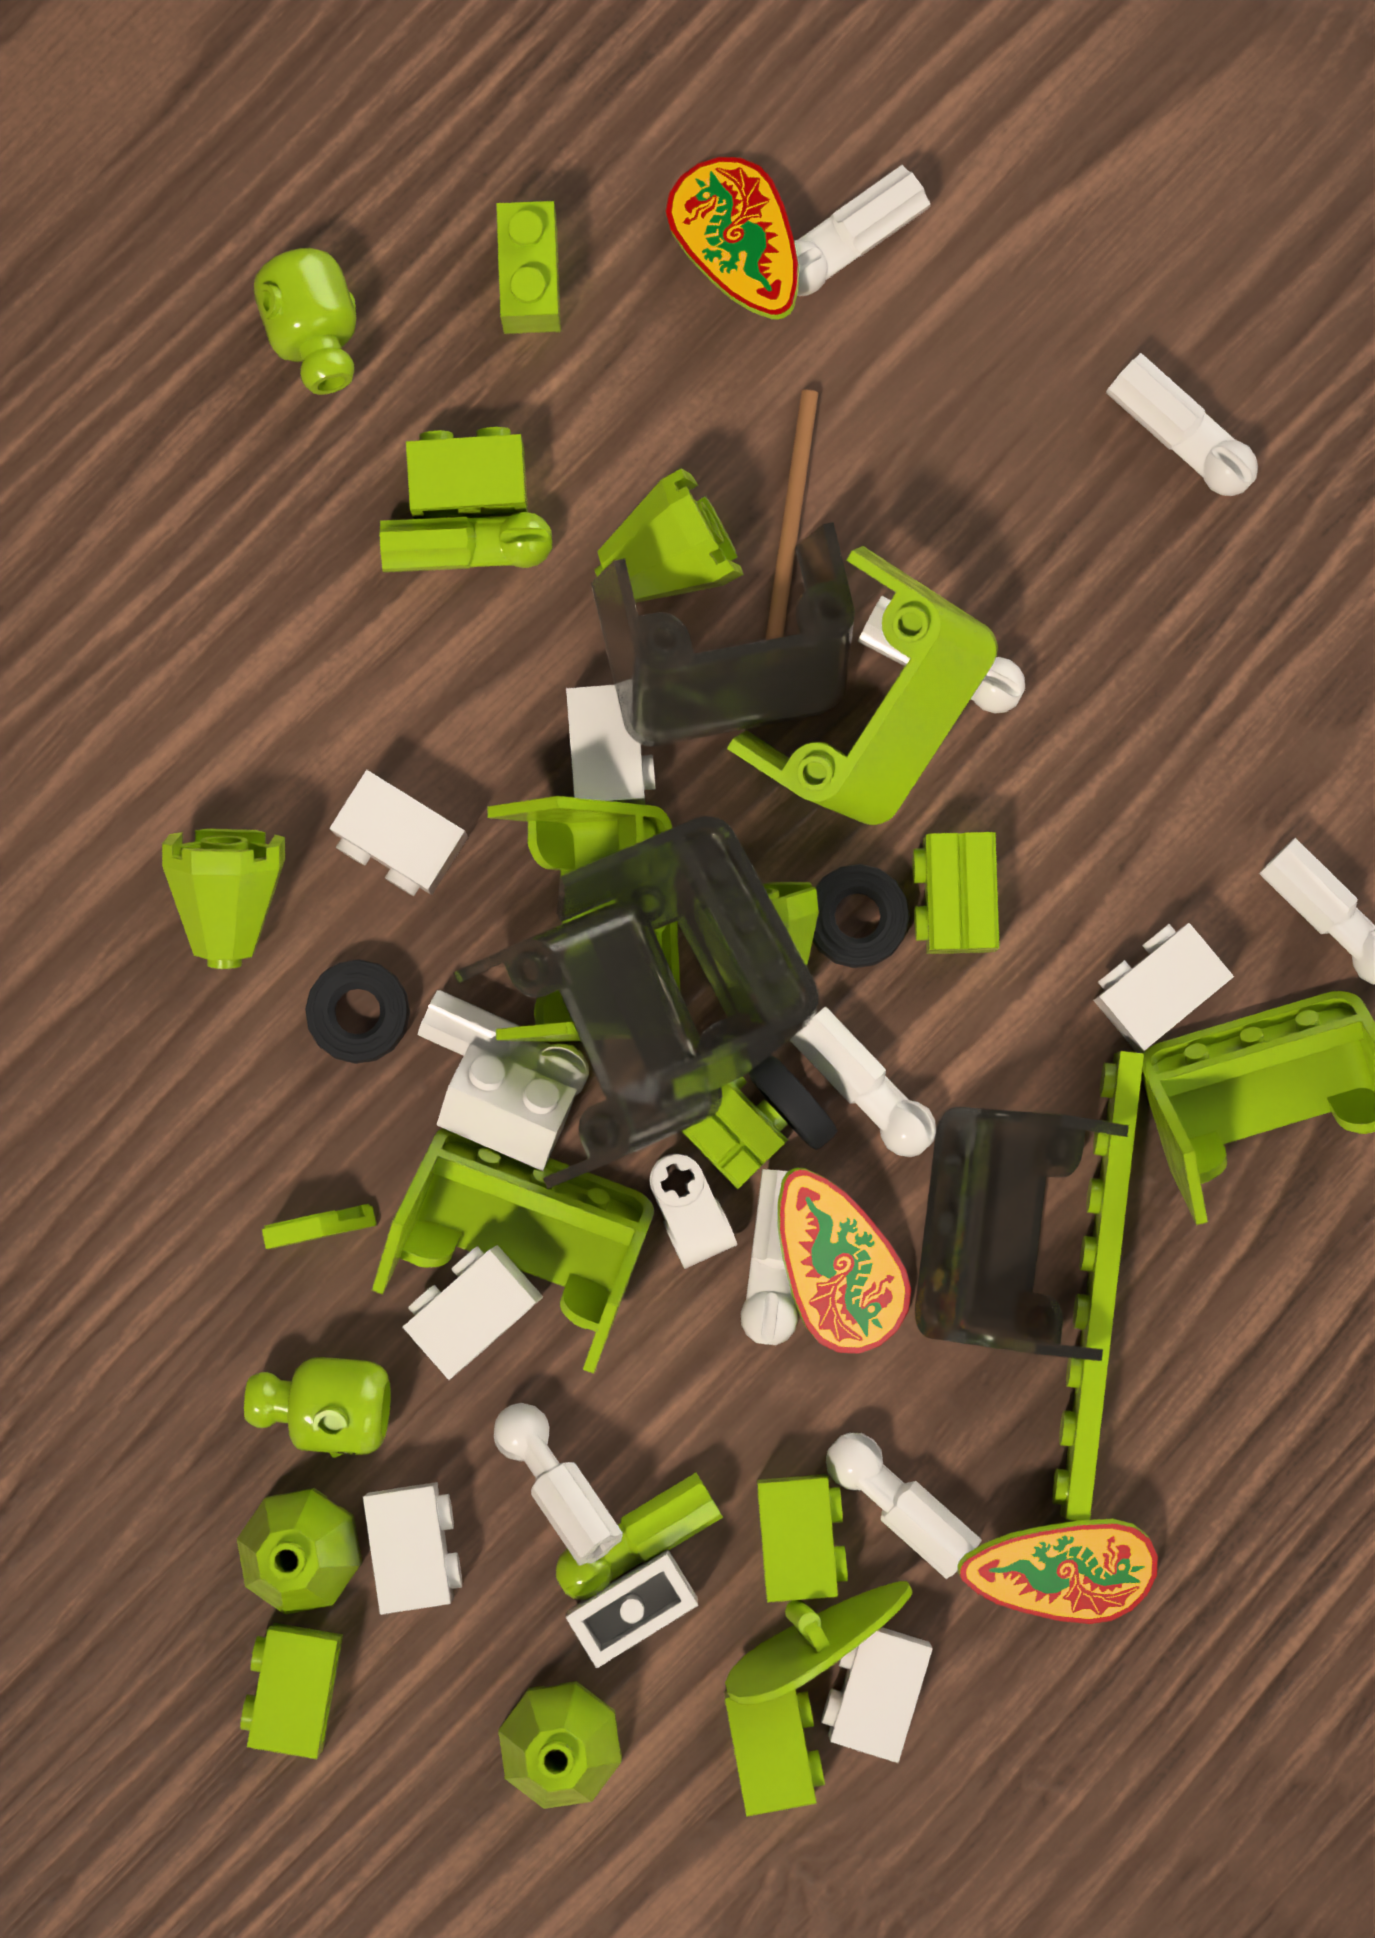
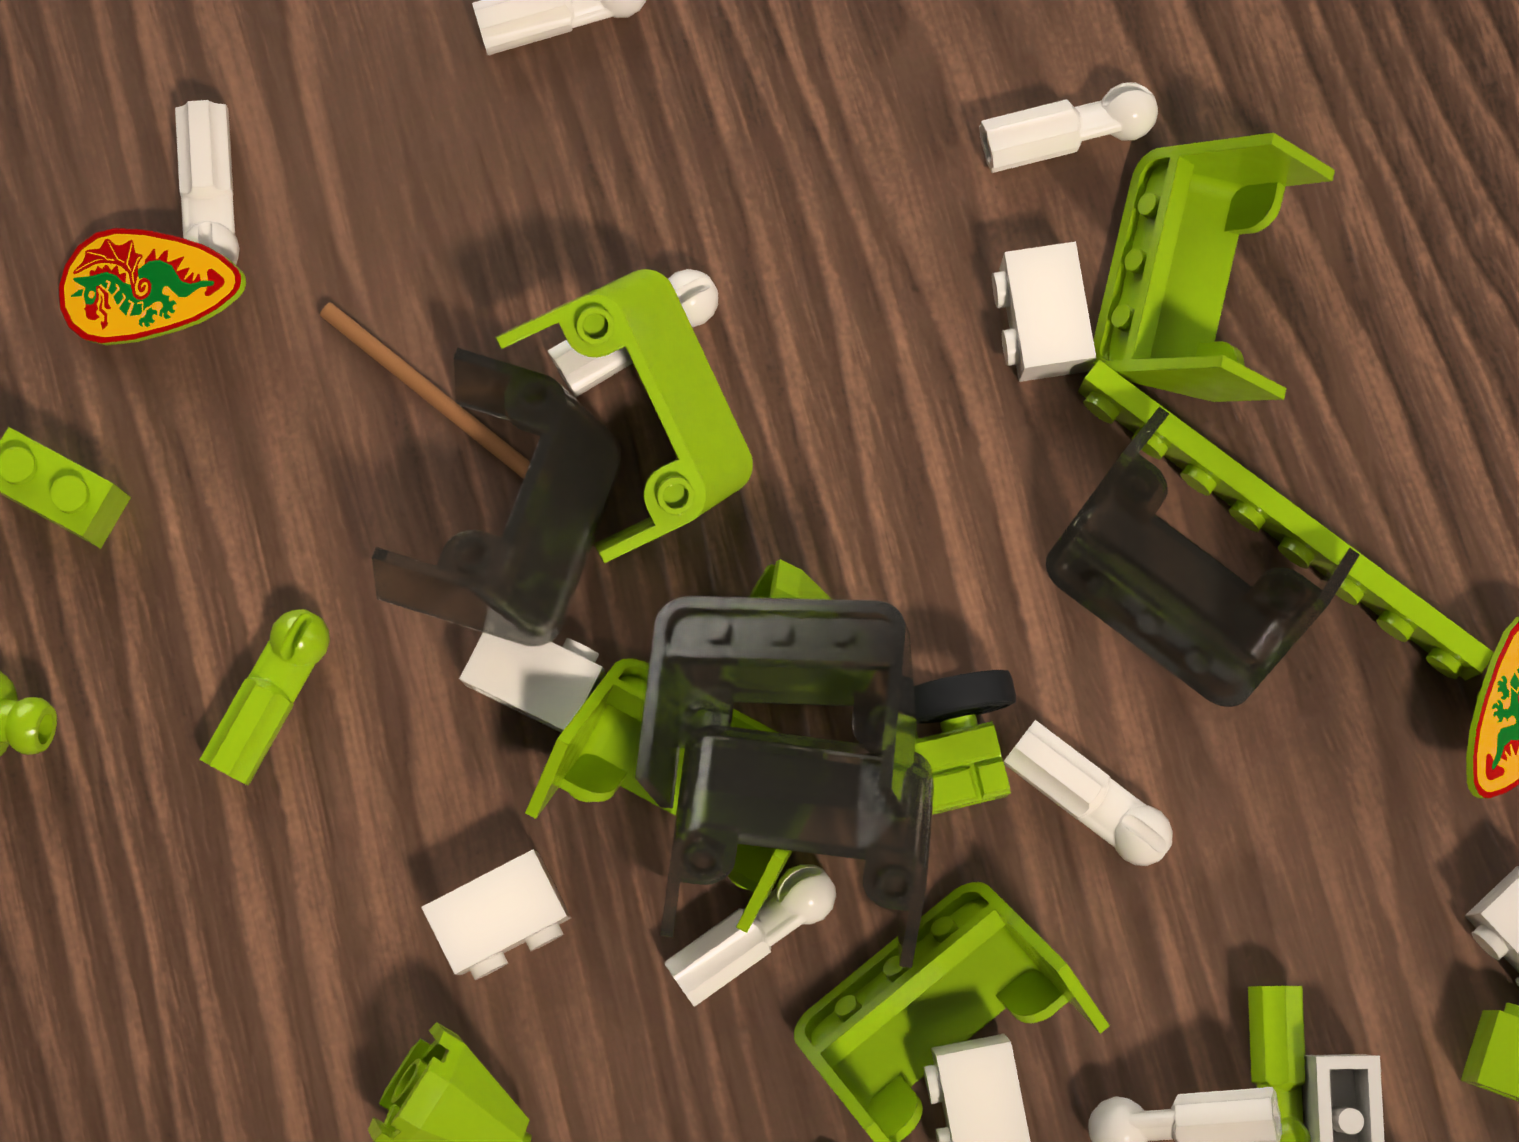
camera: 60 degrees left, 5 degrees down
(323, 1002) = (600, 1050): black tyre -> none
(466, 474) = (207, 655): lime brick -> none
(506, 1107) = (811, 962): white brick -> none
(672, 543) = (385, 506): lime cone -> none
(694, 1219) = (1012, 850): white piece -> none
(799, 1537) = (1361, 927): lime brick -> none
(812, 1643) = (1469, 972): lime shield -> none
(839, 1265) = (1132, 743): shield -> none
(857, 1075) = (972, 625): white piece -> none
(892, 909) = (837, 509): black tyre -> none
(906, 1507) = (1387, 811): white piece -> none
(959, 893) = (855, 440): lime brick -> none

